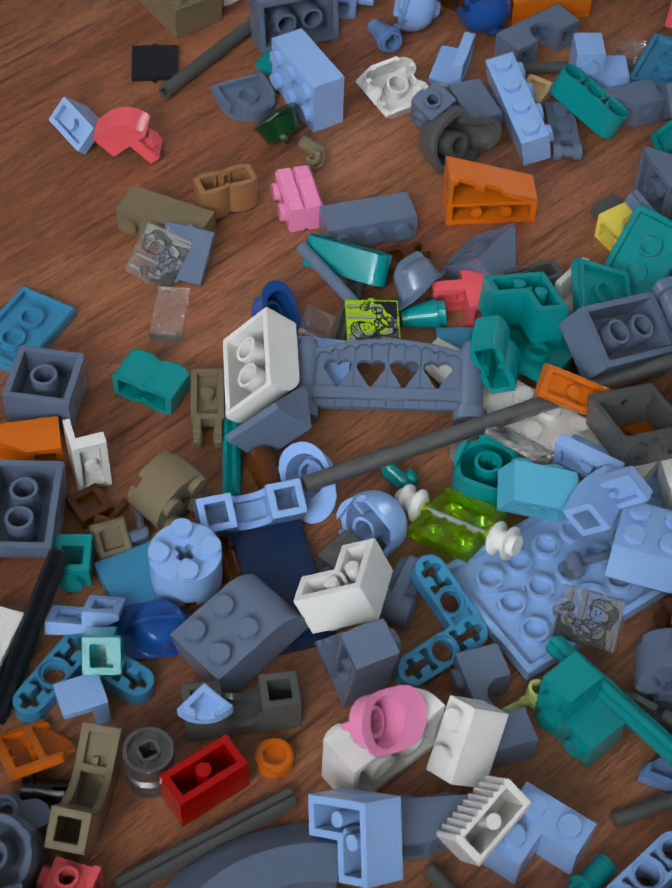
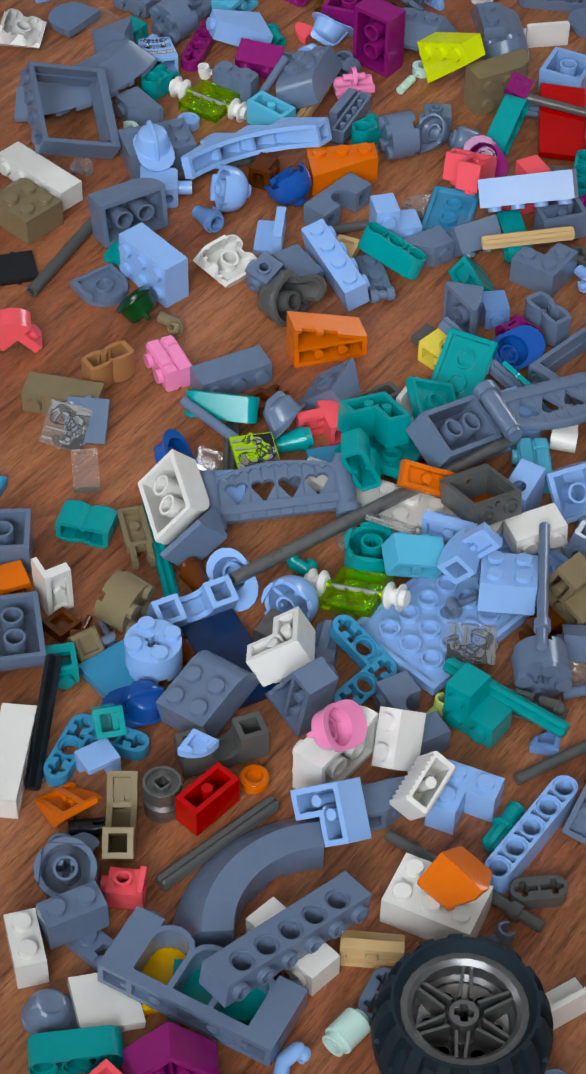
camera: 10 degrees left, 5 degrees down
(97, 612) = (76, 707): light blue slope -> none

